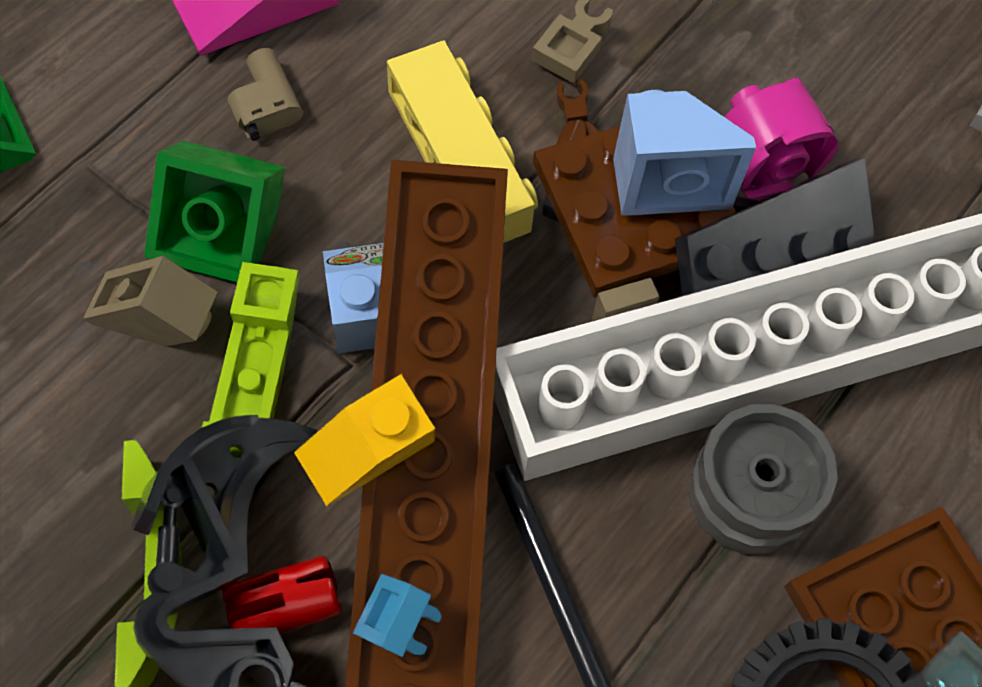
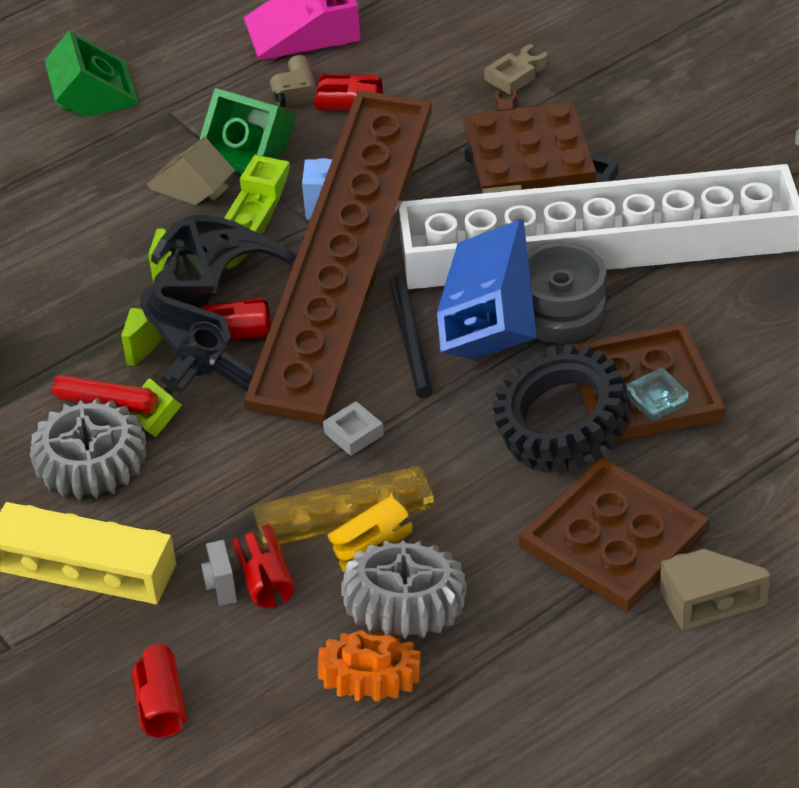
camera: 20 degrees right, 20 degrees down
(348, 110) = (339, 91): none -> red arm
(366, 440) = (304, 222): yellow slope -> none
(394, 615) = (297, 314): dark azure tile -> none
(455, 125) = (412, 80): light yellow brick -> none
(675, 528) = (487, 295): none -> blue slope
(678, 155) = (546, 108): light blue slope -> none
(781, 231) = (616, 161): black wing -> none
(787, 133) = (632, 124): dark pink brick -> none

